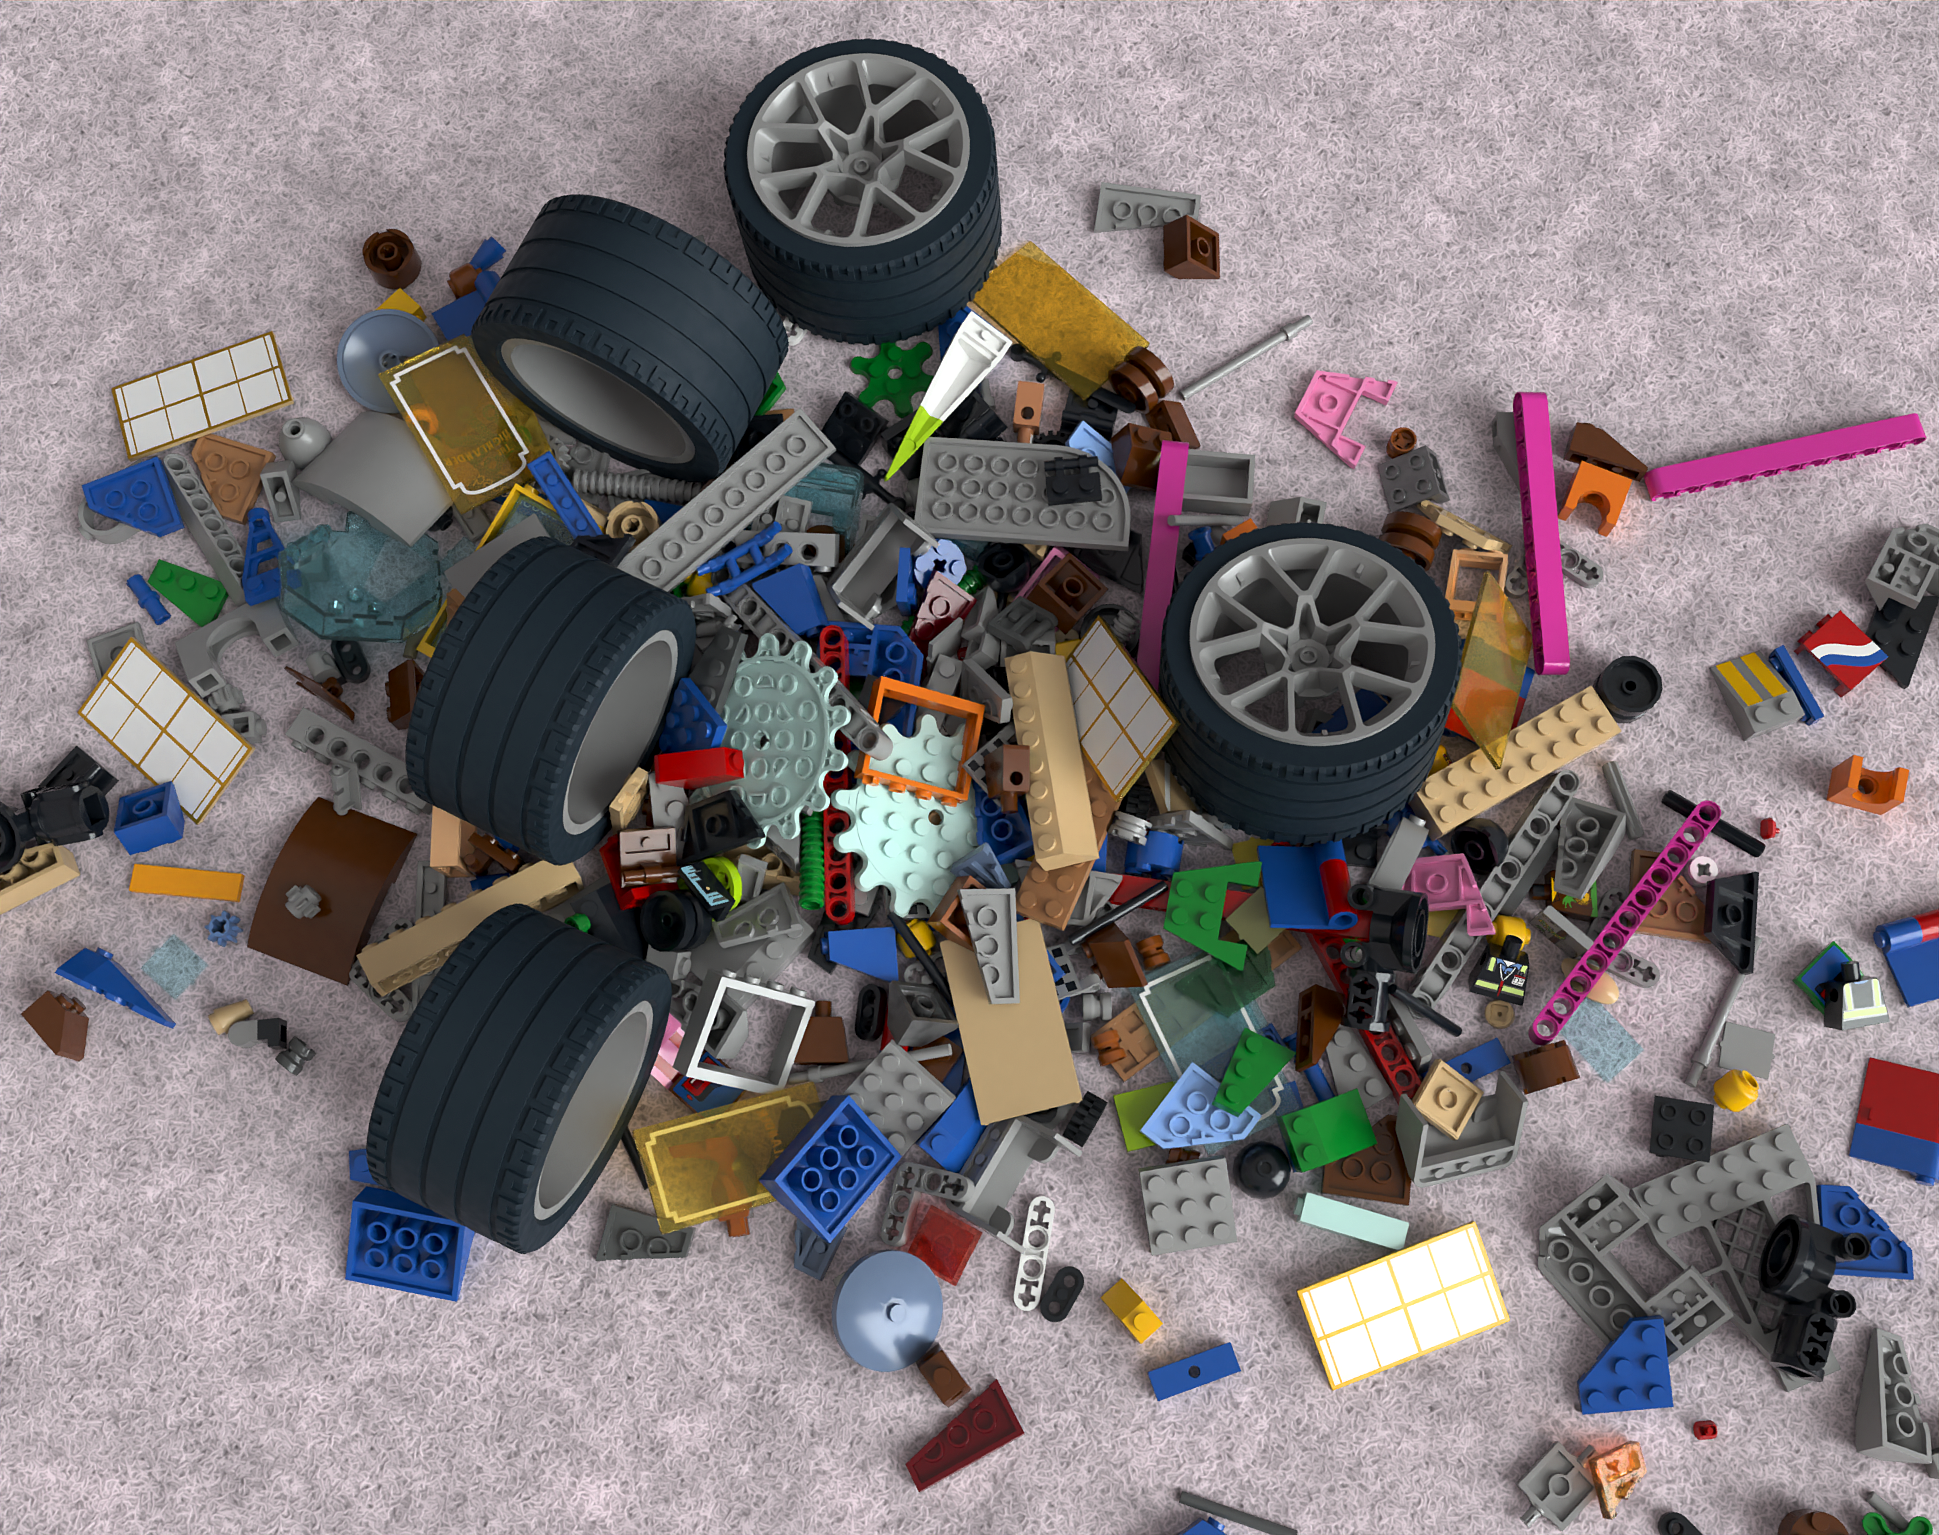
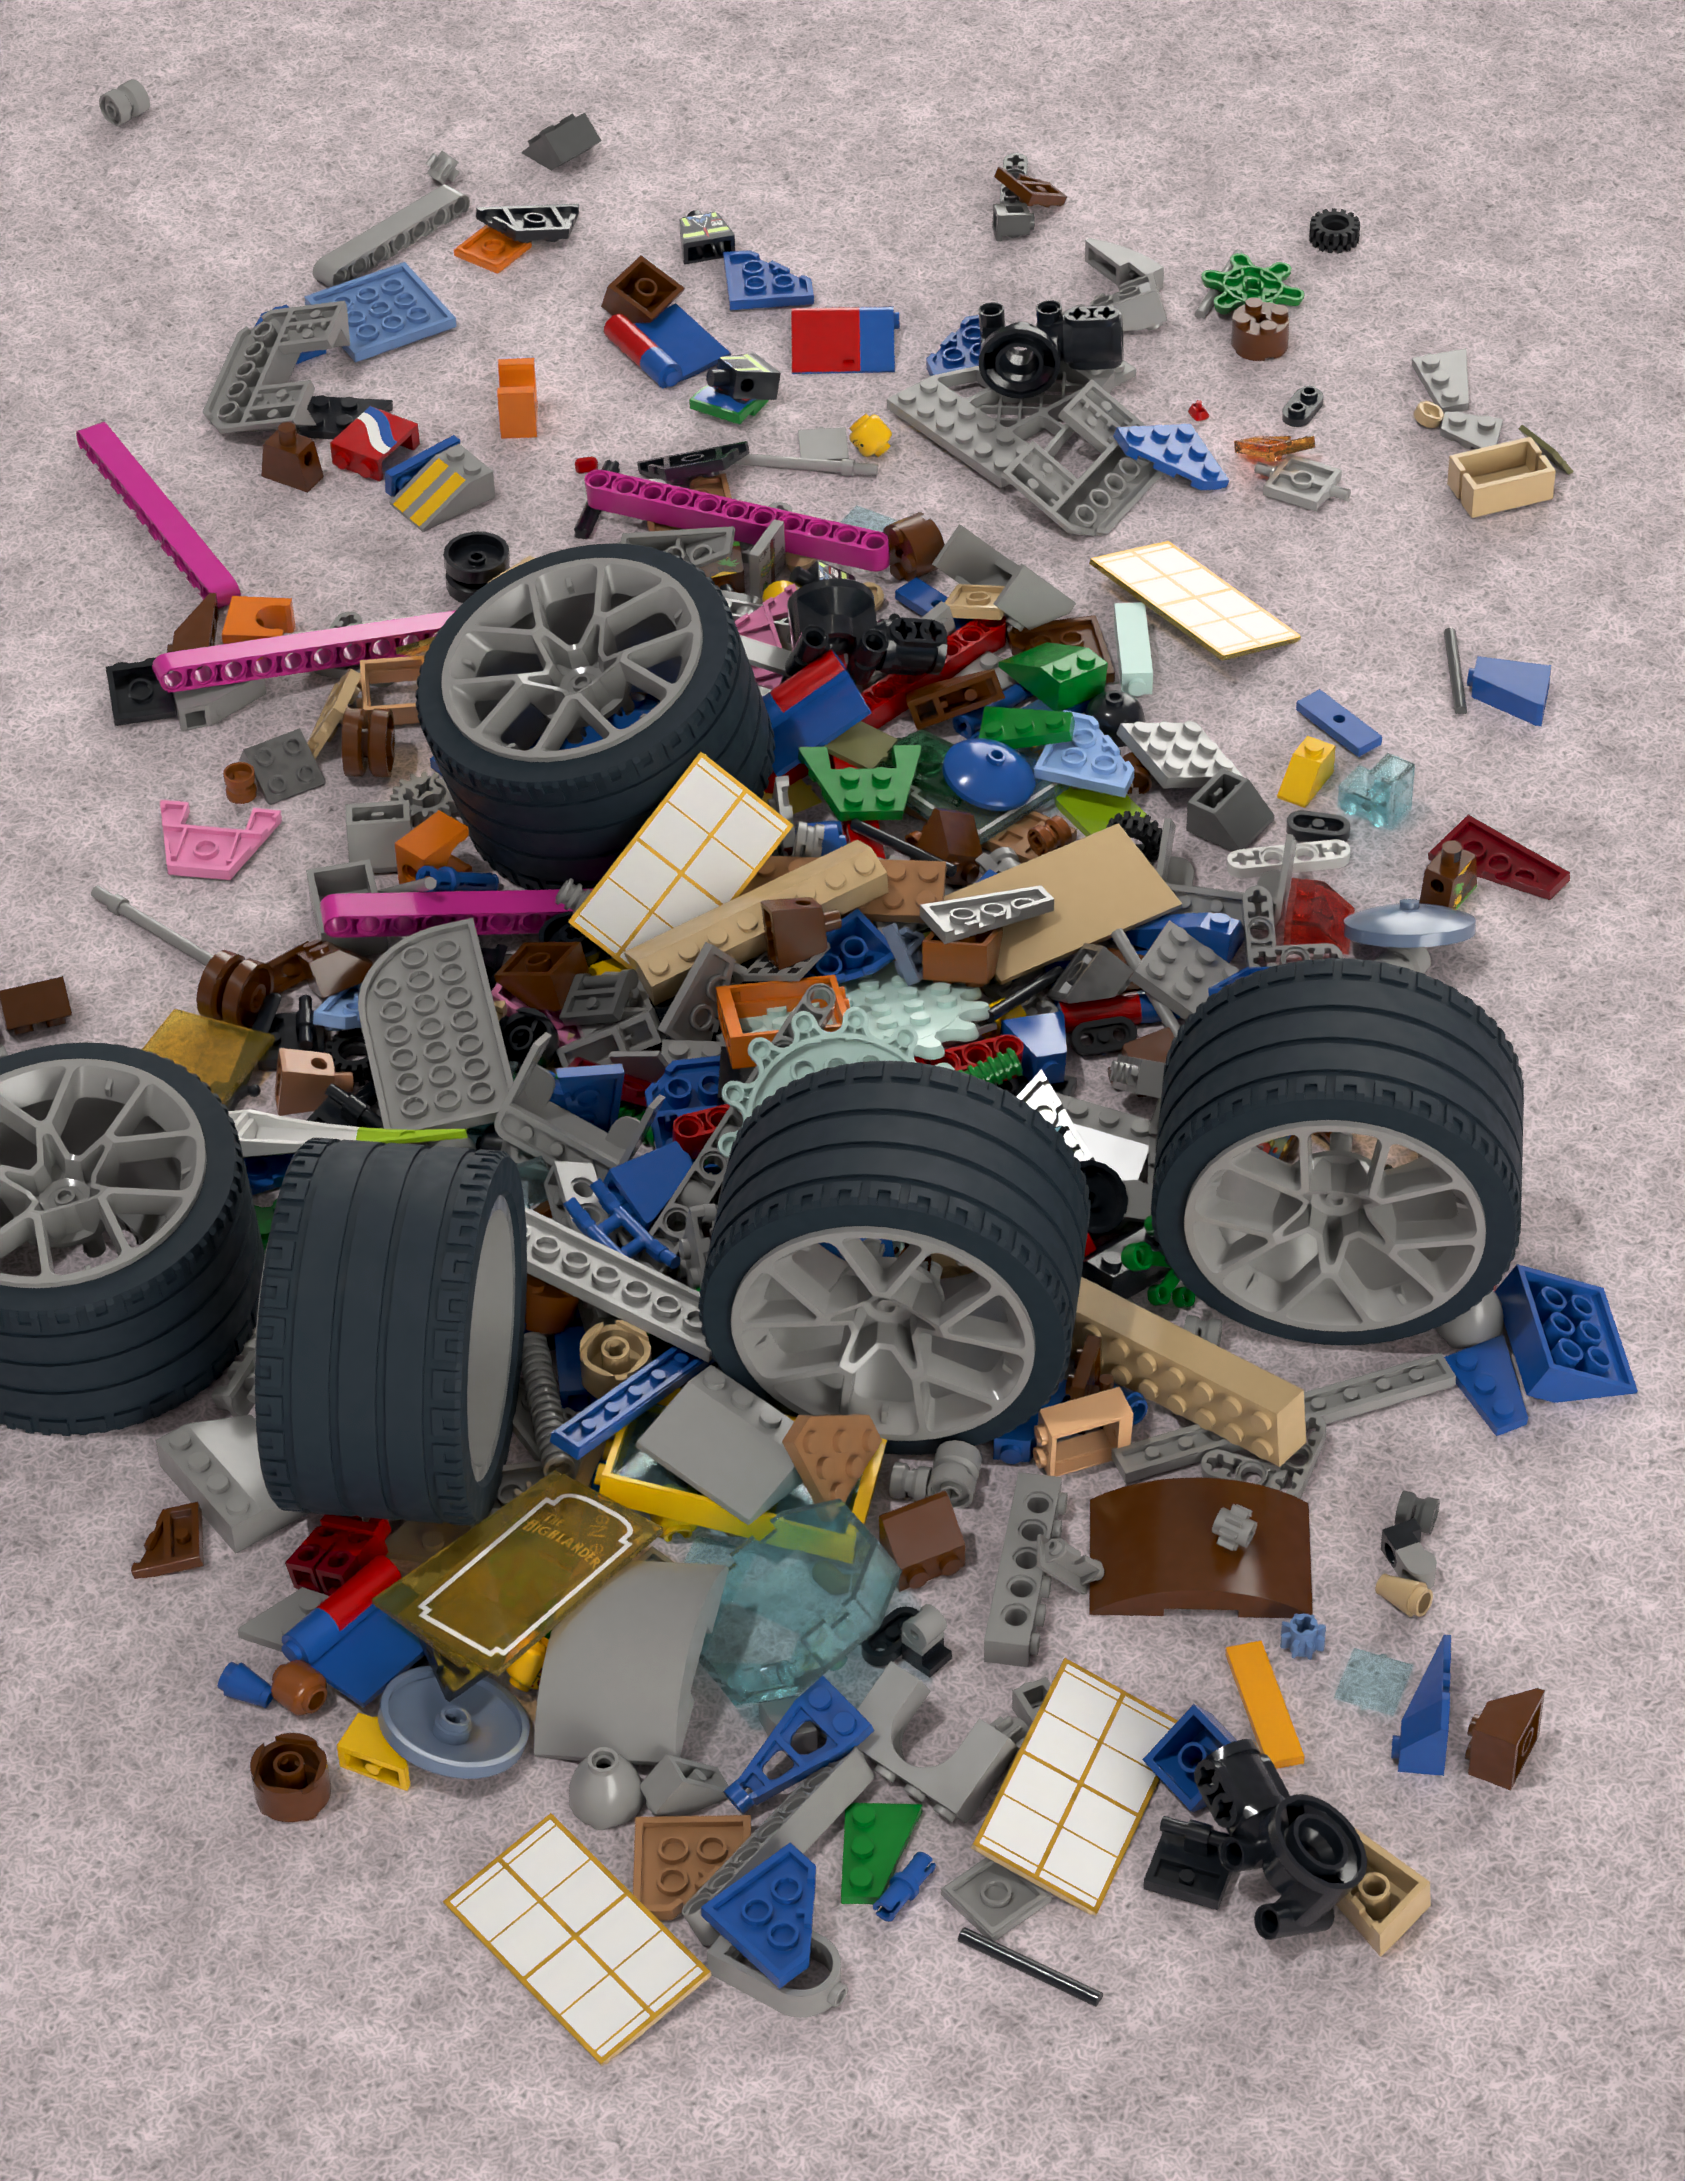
camera: 110 degrees left, 30 degrees down
(56, 658) = (1030, 1966): none -> black bar
(322, 693) = (959, 1624): reddish brown shield -> none
(604, 547) = (672, 1348): black wing -> none
(1075, 487) = (415, 980): black plate -> none
(1078, 1359) = (1380, 793): none -> clear light blue brick
(1097, 1220) = (1228, 811): none -> dark grey slope
(1202, 1001) = (989, 774): none -> blue dish
(1553, 382) = (137, 693): none -> black plate
(1681, 1129) = (926, 461): black hinge -> none
(1829, 573) = (291, 459): none -> reddish brown torso

